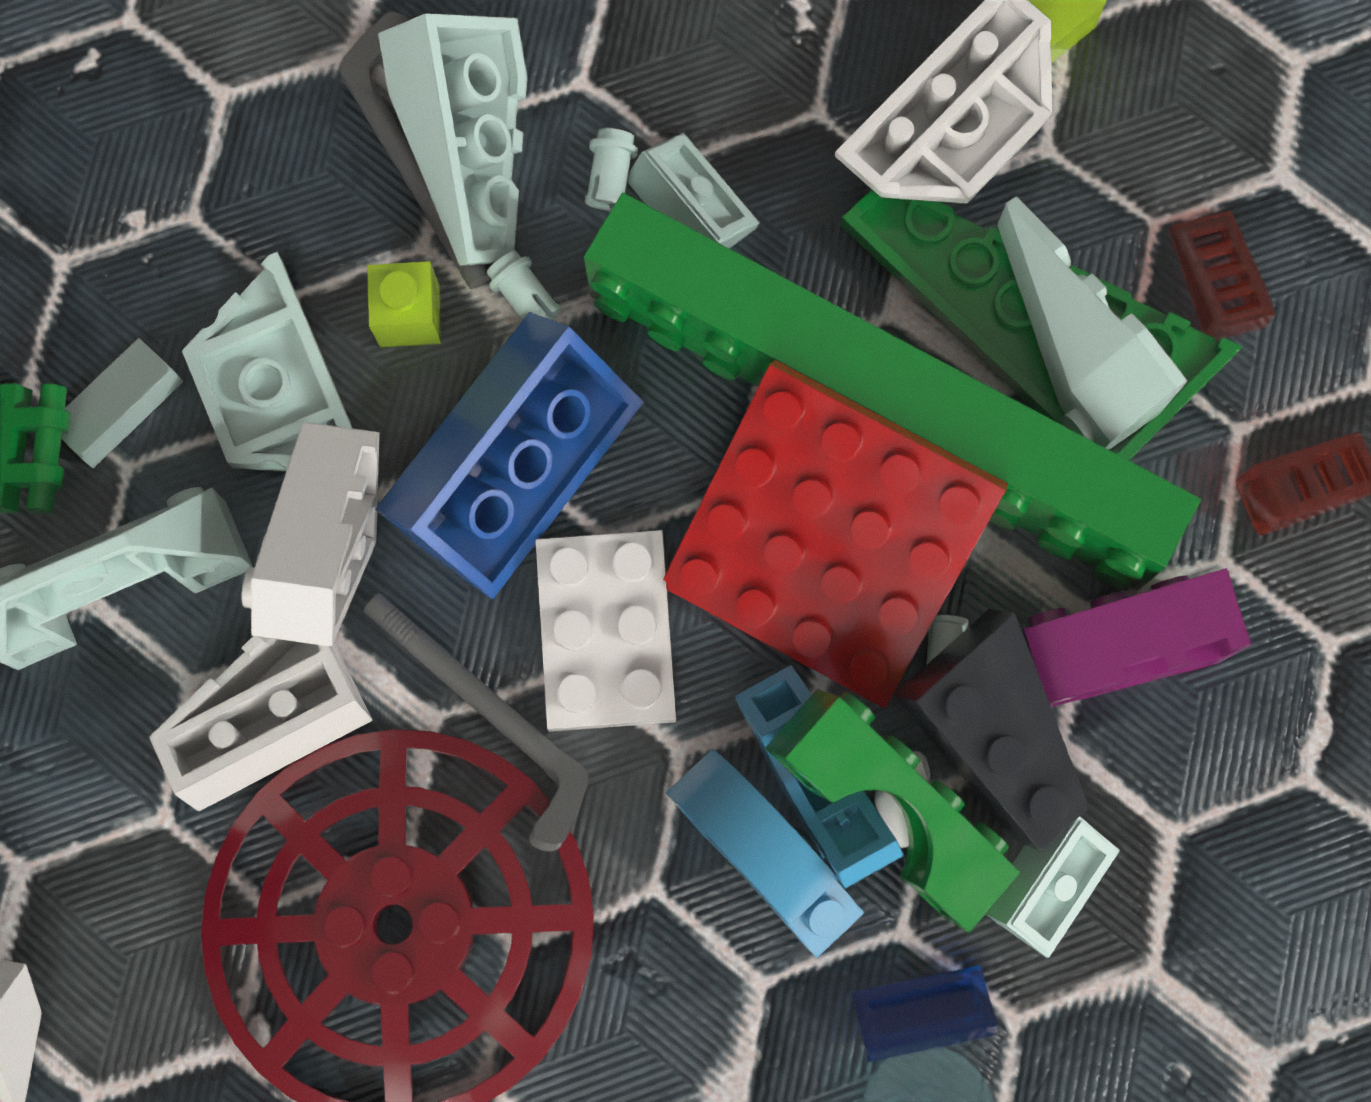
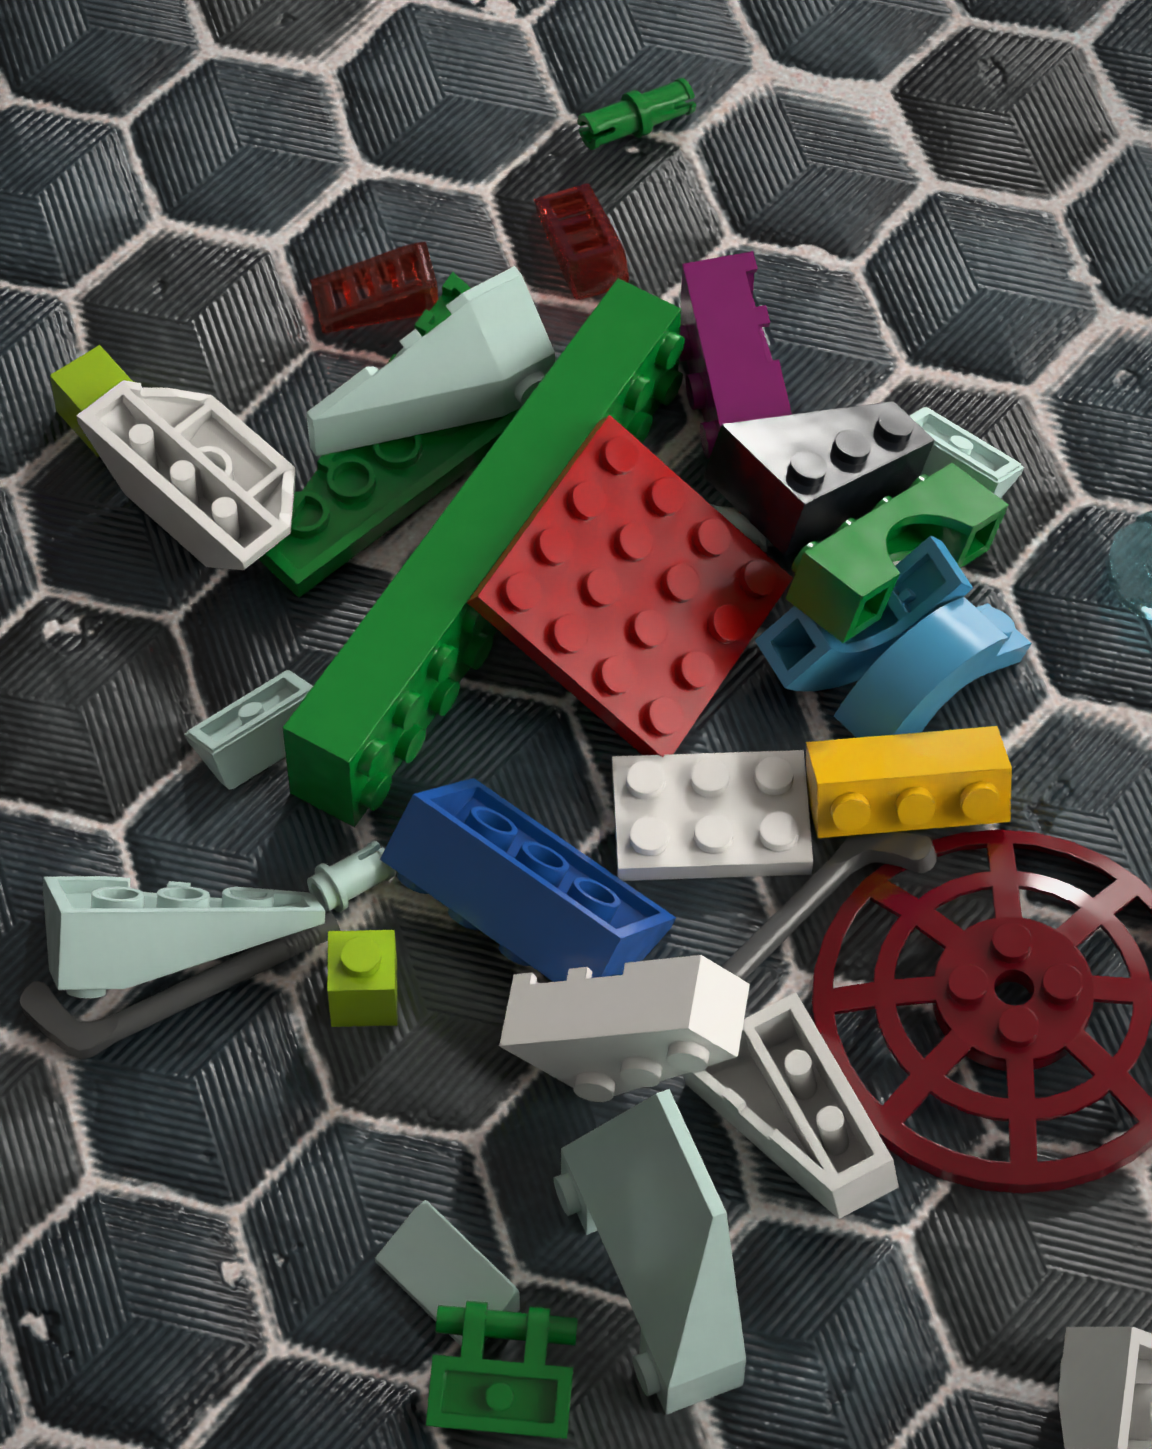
camera: 90 degrees left, 20 degrees down
(263, 373) = (430, 1119): light aqua wing -> none
(610, 167) = (219, 793): light aqua pin -> none
(628, 821) = (908, 782): none -> yellow brick
(924, 1013) = (1080, 559): clear blue tile -> none

